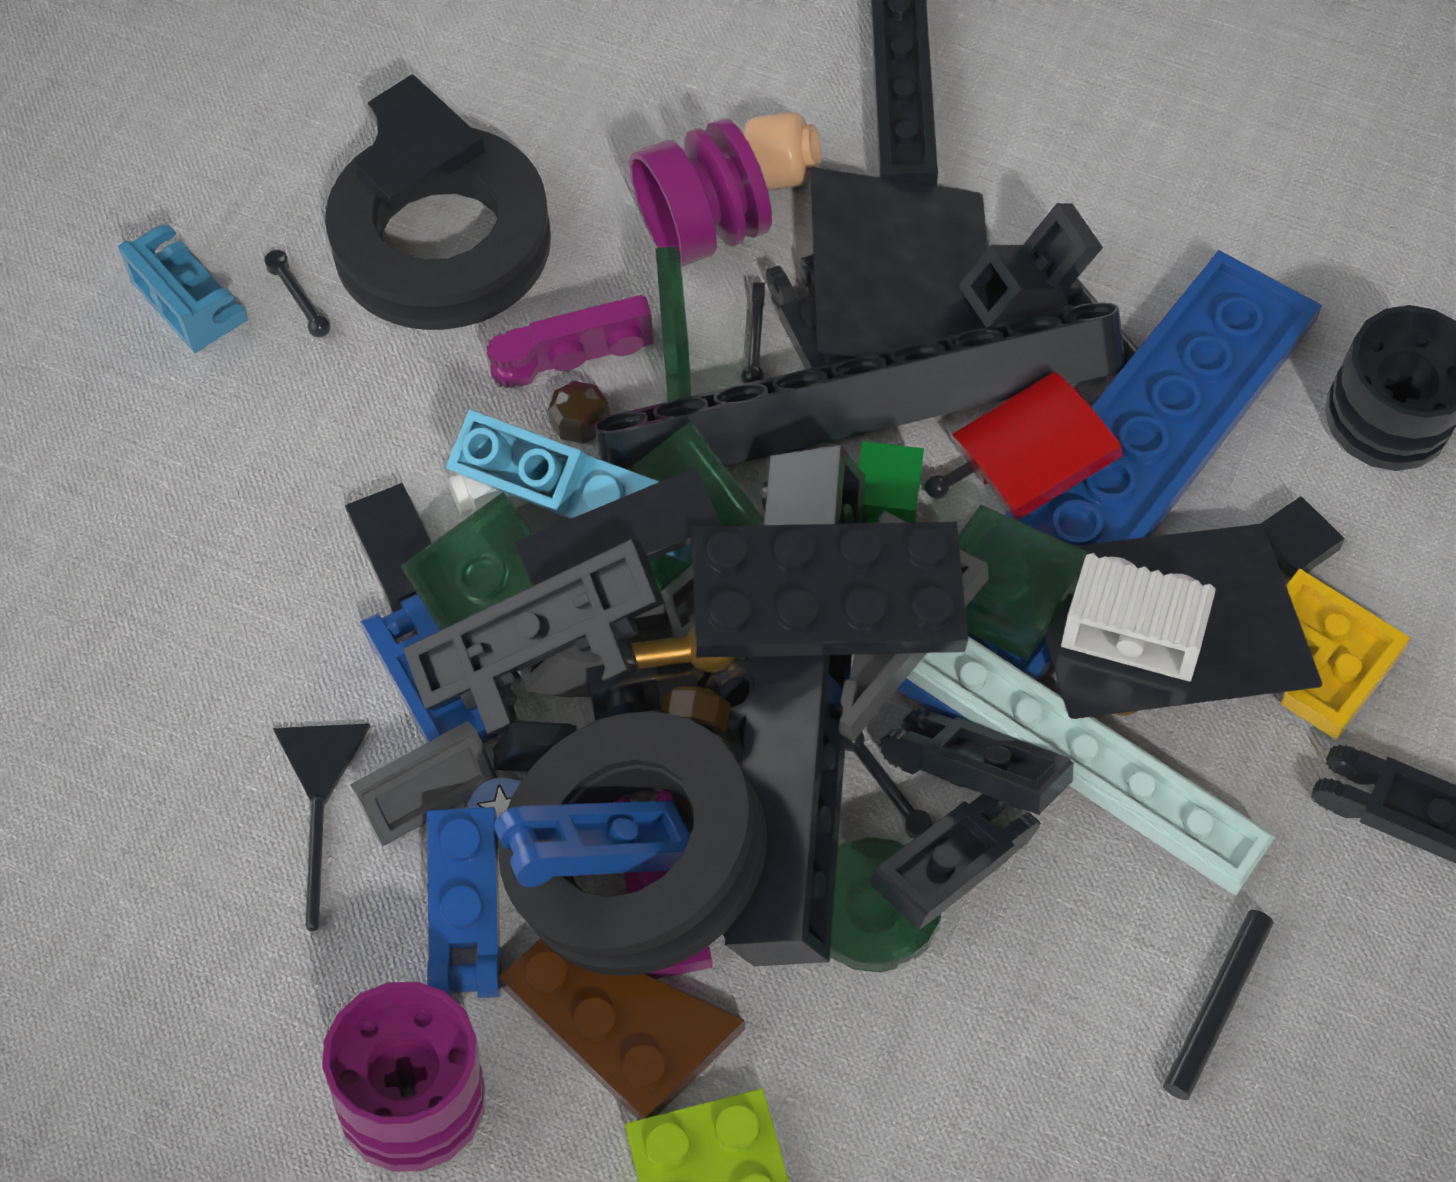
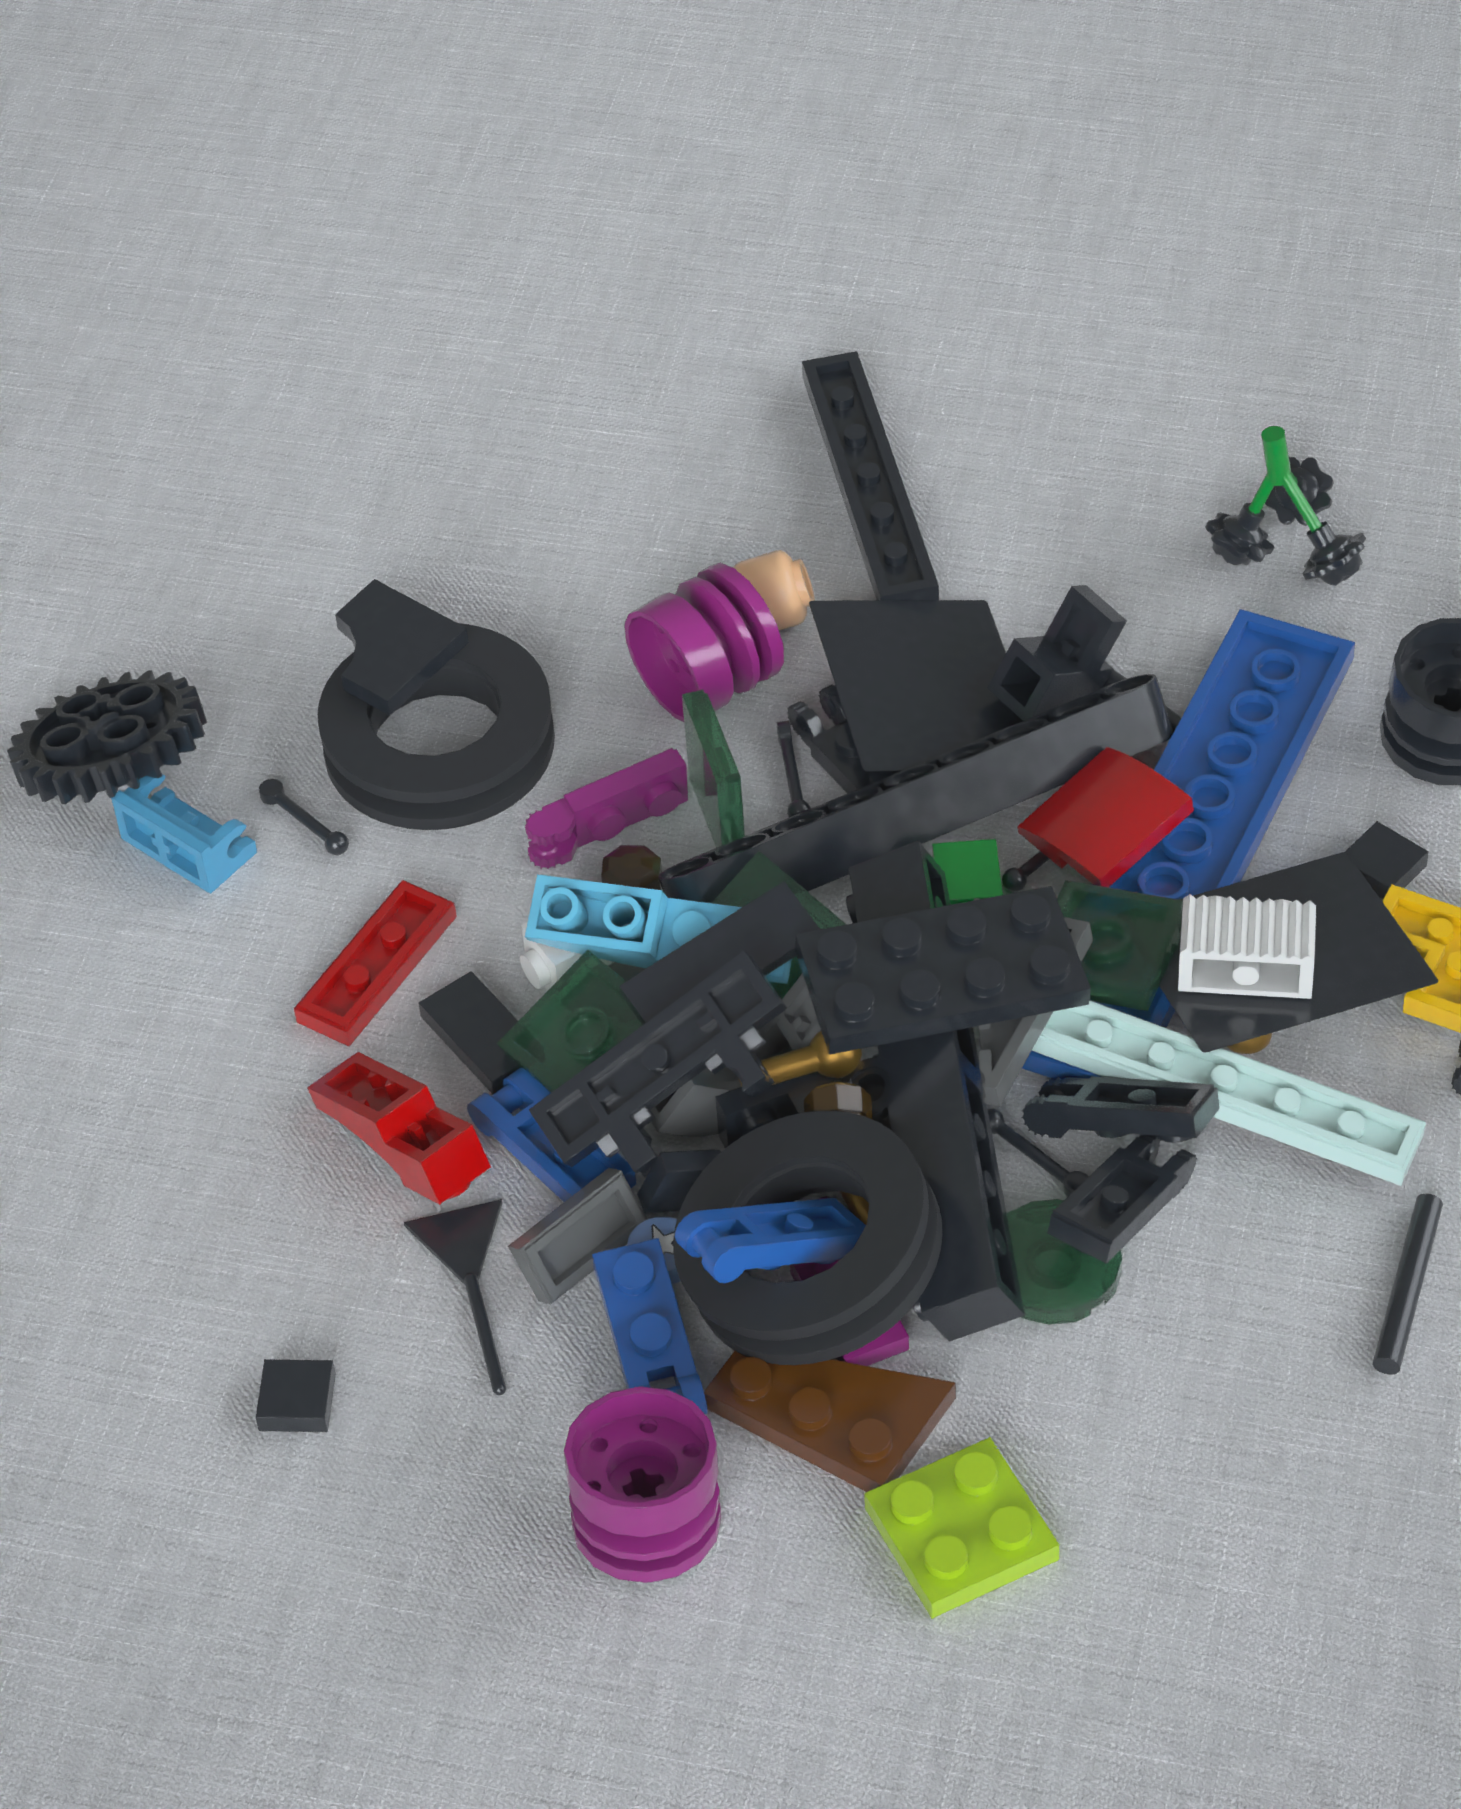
camera: 10 degrees left, 10 degrees down
(119, 892) = (295, 1395): none -> black tile
(136, 184) = (107, 737): none -> black gear
(292, 633) = (401, 1123): none -> red slope
(320, 454) = (375, 963): none -> red tile
(1300, 140) = (1294, 493): none -> black plant

